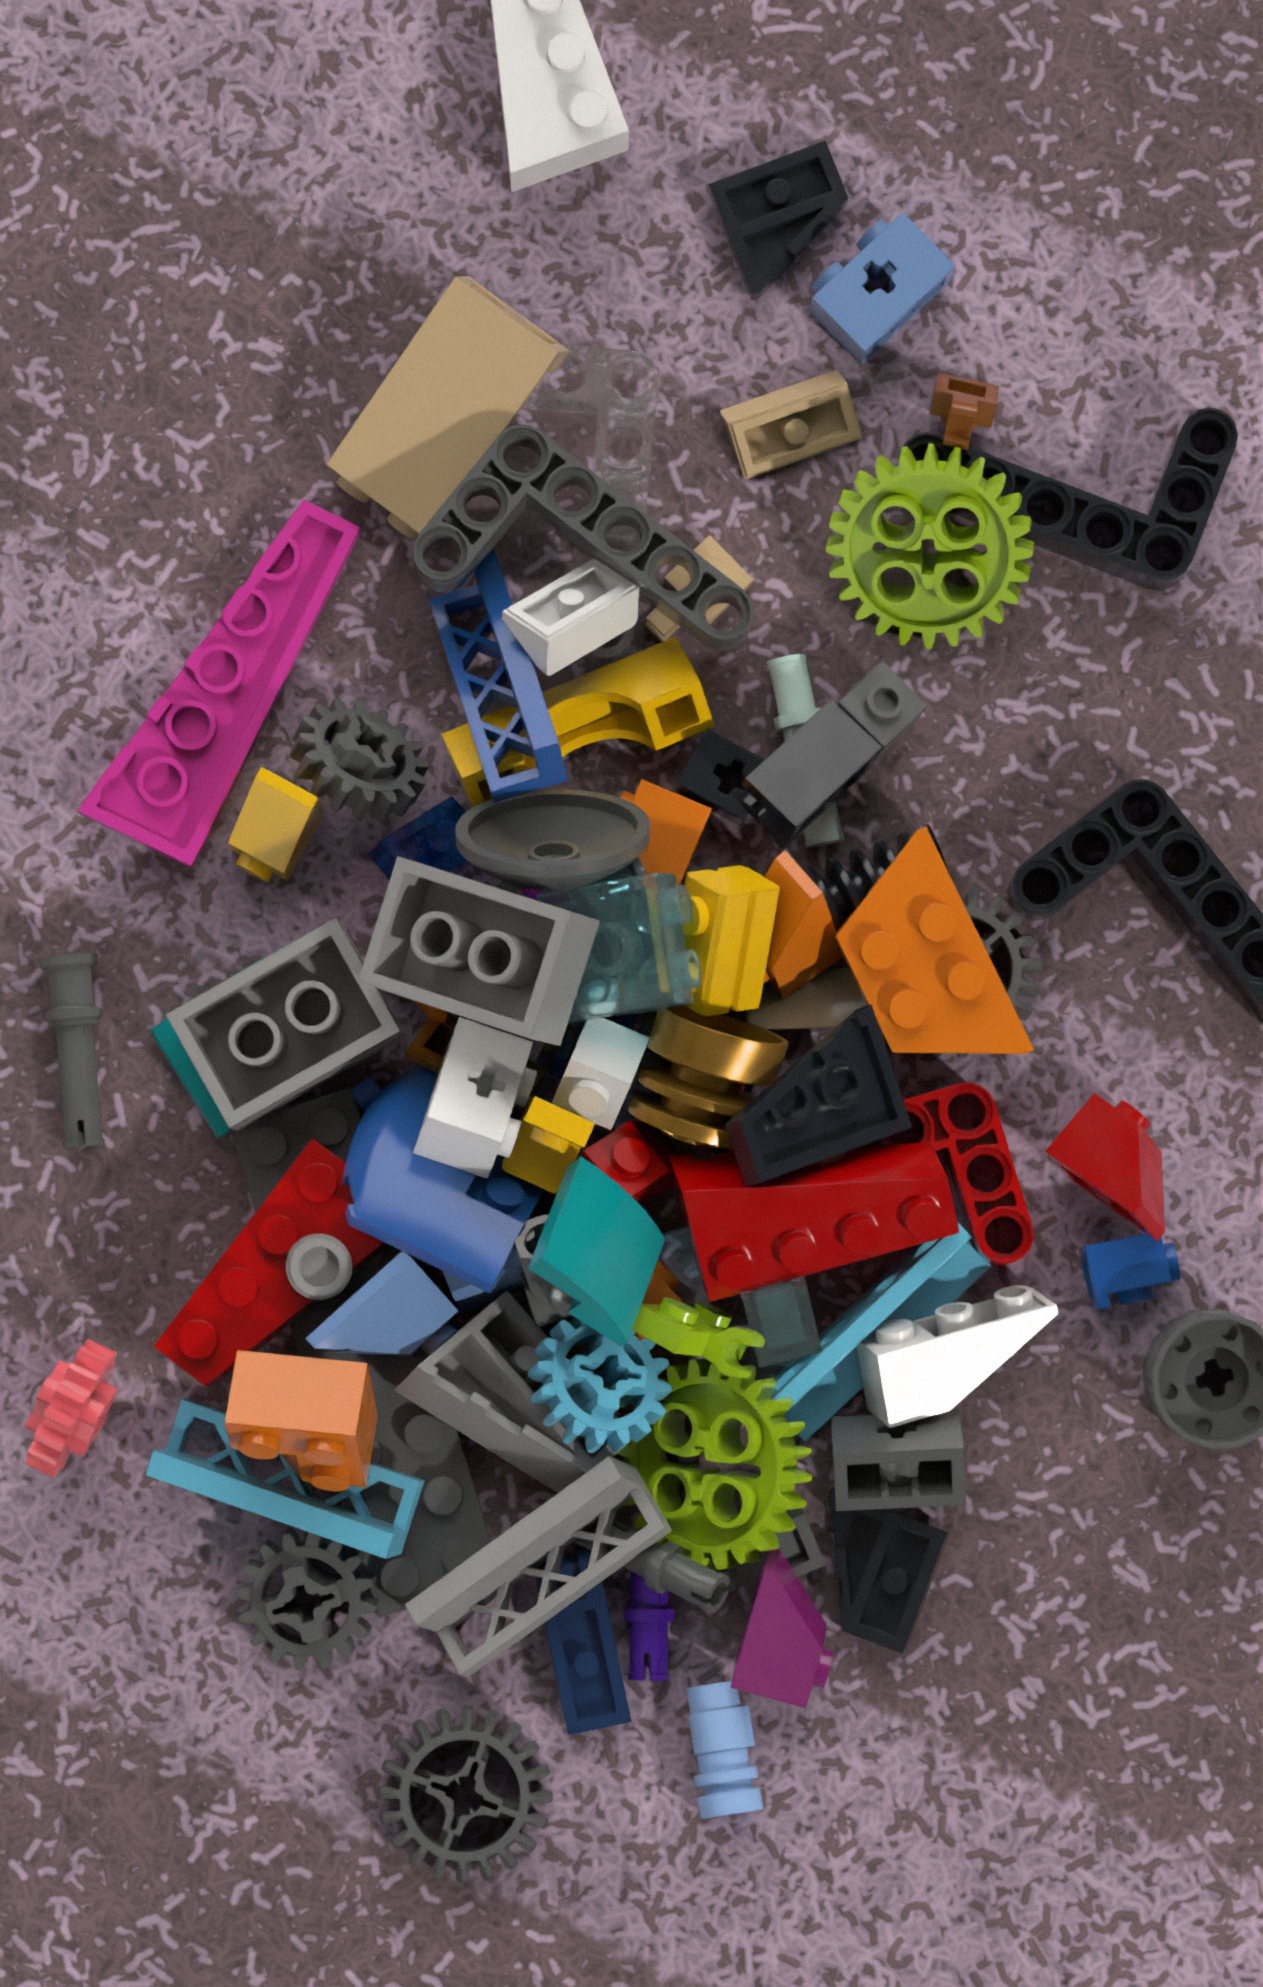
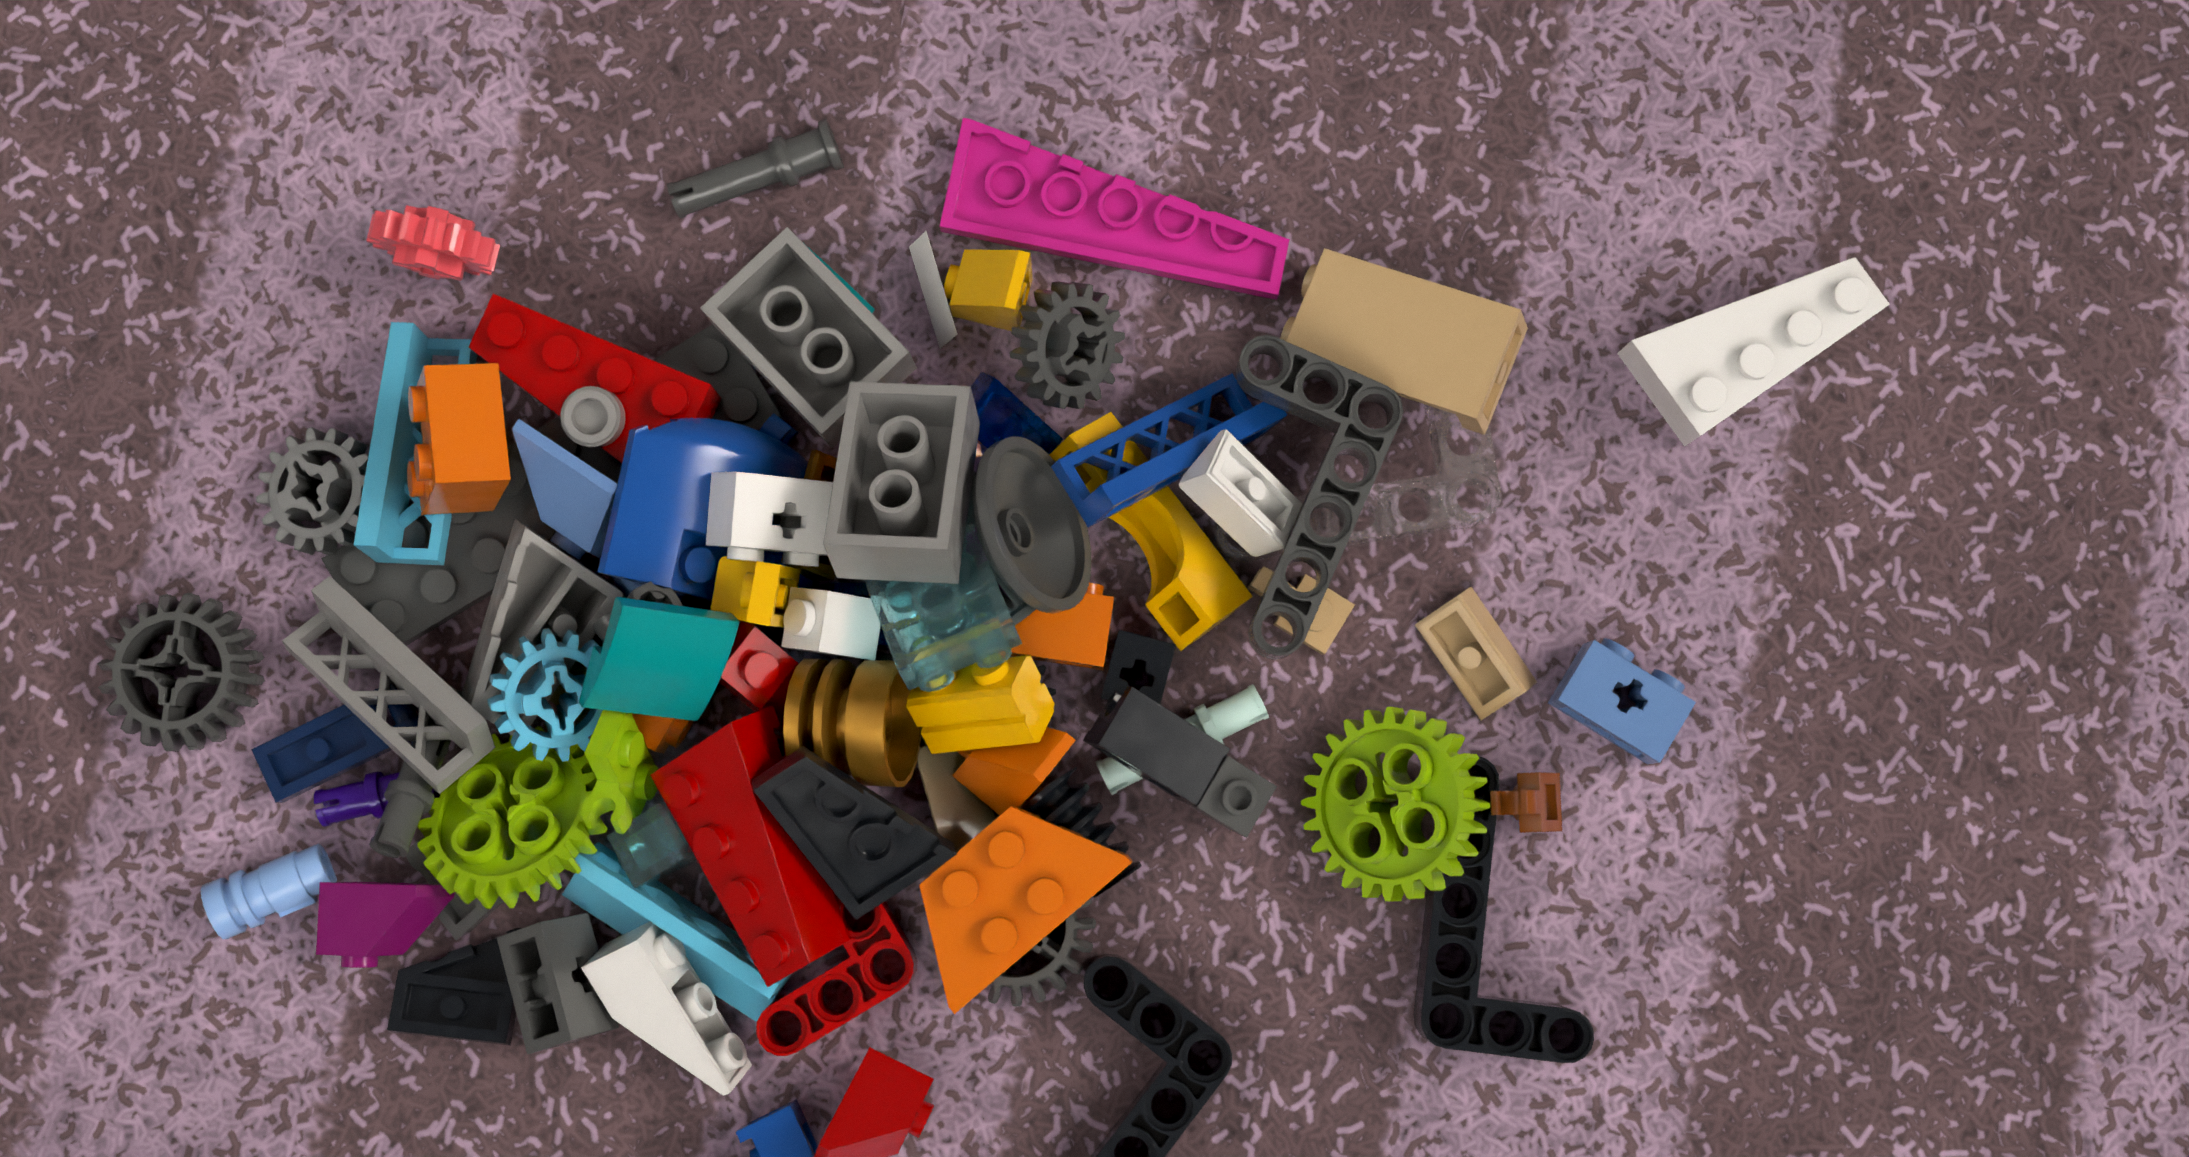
camera: 80 degrees right, 0 degrees up
(257, 891) = (933, 290): none -> white sticker
(777, 211) = (1665, 591): black wing -> none

